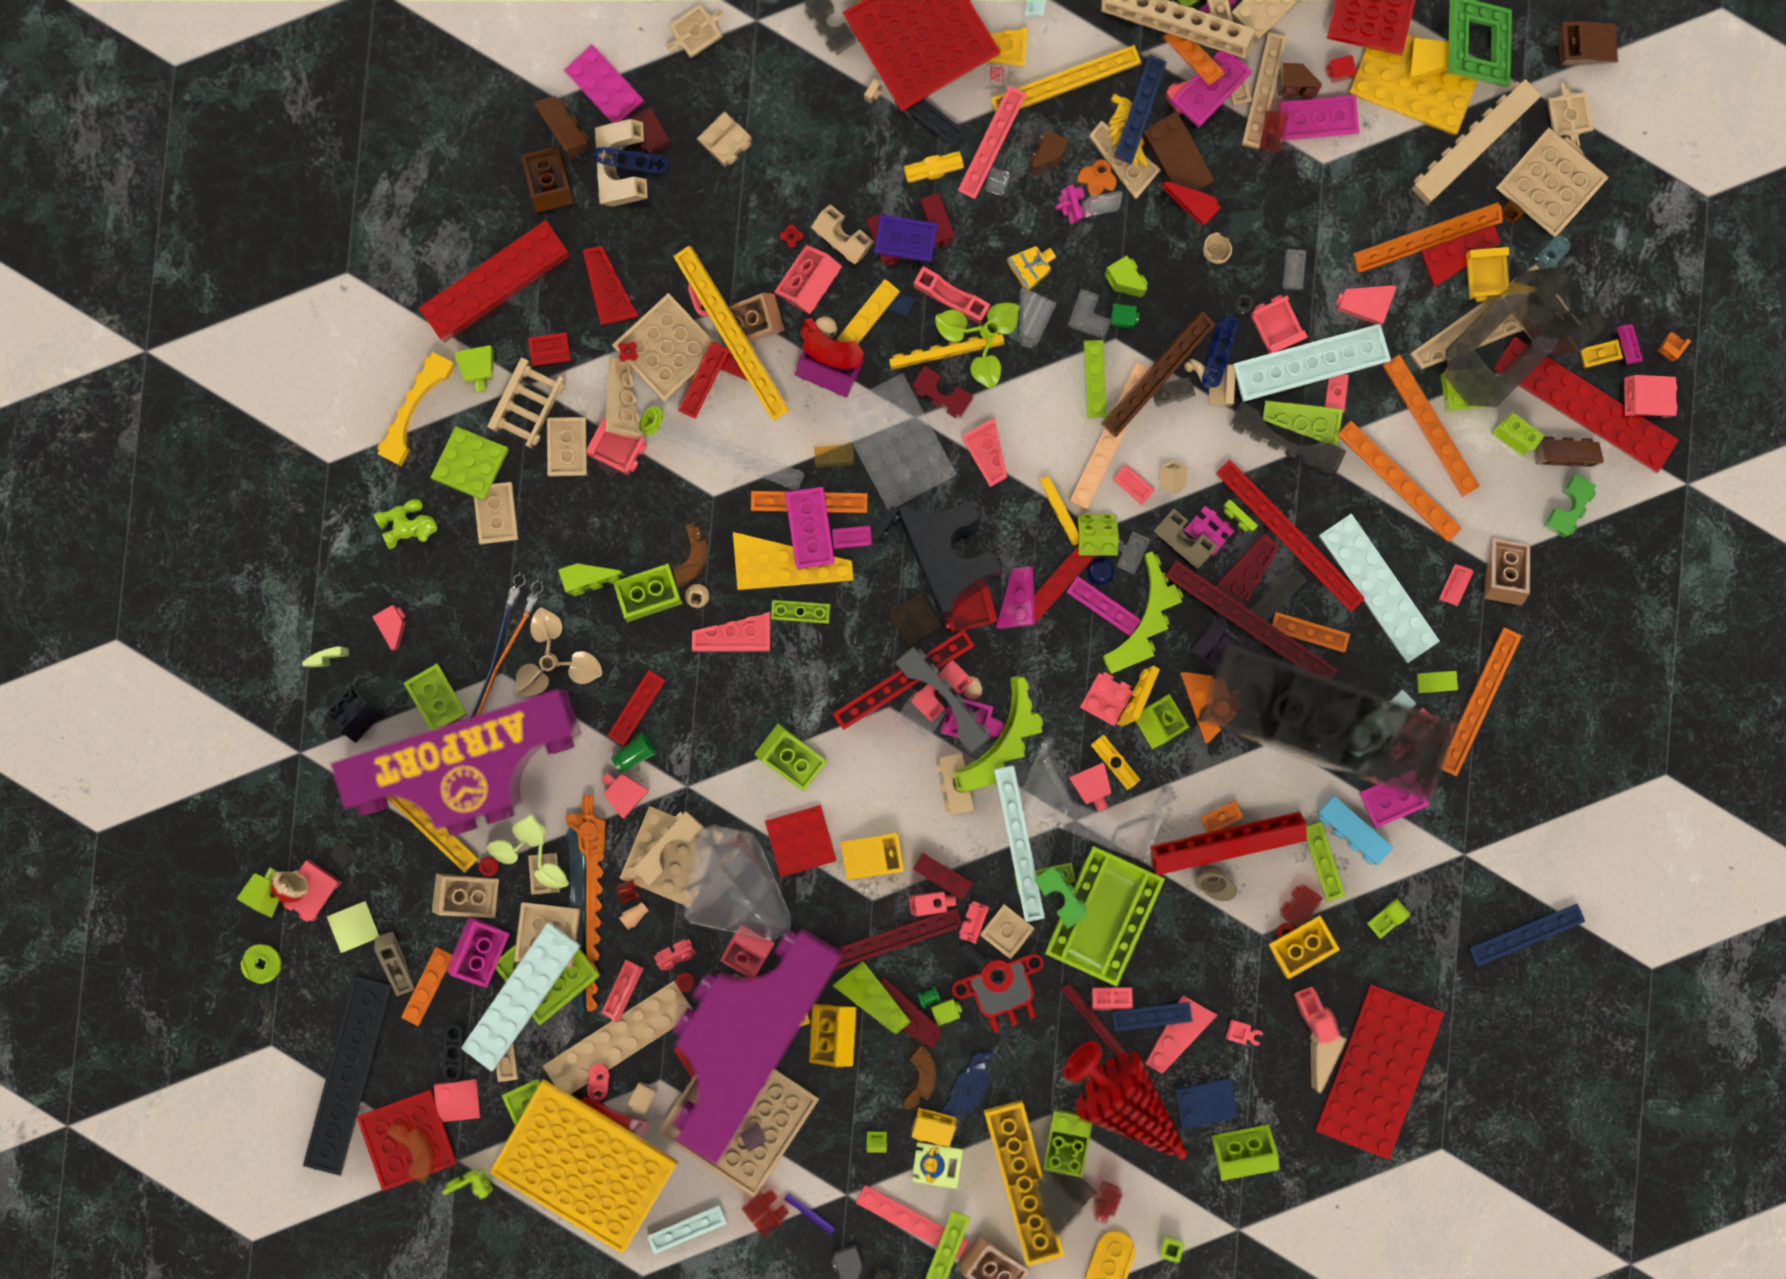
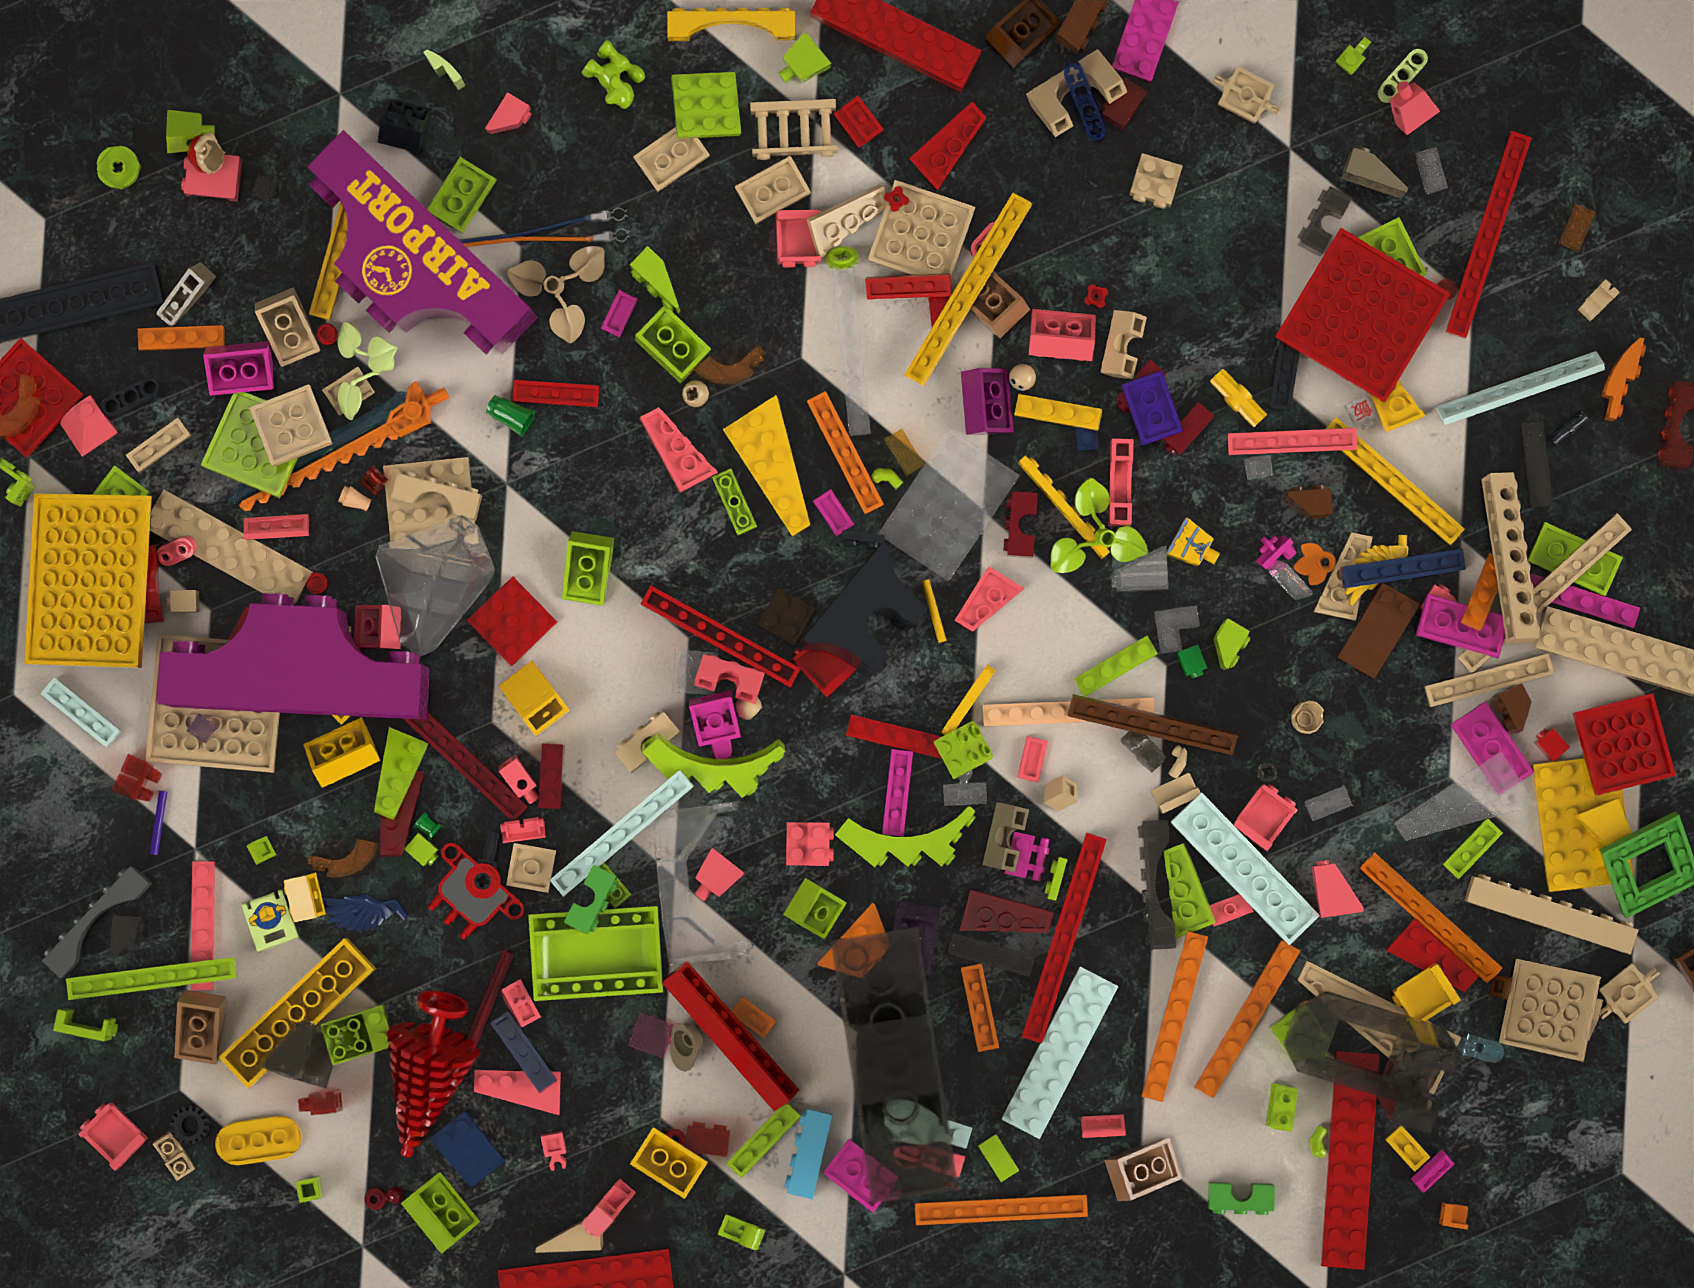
camera: 55 degrees right, 0 degrees up
(353, 927) = (199, 235): yellowish green slope -> none
(520, 996) = (218, 432): light aqua plate -> none
(599, 622) = (619, 313): none -> dark pink tile
(623, 793) = (466, 425): coral torso -> none
(683, 952) = (329, 554): coral hinge -> none
(809, 527) = (820, 466): dark pink tile -> none
(828, 351) = (1000, 392): red arch -> none
(844, 479) = (889, 475): none -> lime arm
(873, 91) = (1280, 299): tan plate -> none
(969, 730) = (702, 726): dark grey arch -> none
(975, 500) = (933, 611): none -> yellow bar
(1018, 600) = (858, 707): dark pink wing -> none
(1100, 571) = (930, 772): clear blue piece -> none
(1123, 772) = (745, 899): yellow piece -> none
(1139, 696) = (827, 873): yellow wing -> none
(1192, 906) = (651, 1035): none -> clear pink piece
(1195, 203) = (1340, 673): red slope -> none
(1211, 1182) = (394, 1195): none -> dark red plate
(1216, 350) = (1207, 777): clear blue beam -> none
(1249, 621) = (957, 944): dark red plate -> none
(1273, 131) = (1452, 710): clear red brick -> none
(1351, 149) = (1476, 796): none -> clear wing
(1390, 175) = (1472, 848): none -> lime plate
(1557, 423) = (1316, 1144): none -> lime arm
(1568, 452) = (1292, 1166): reddish brown slope -> none
(1650, 396) = (1391, 1218): coral panel -> none

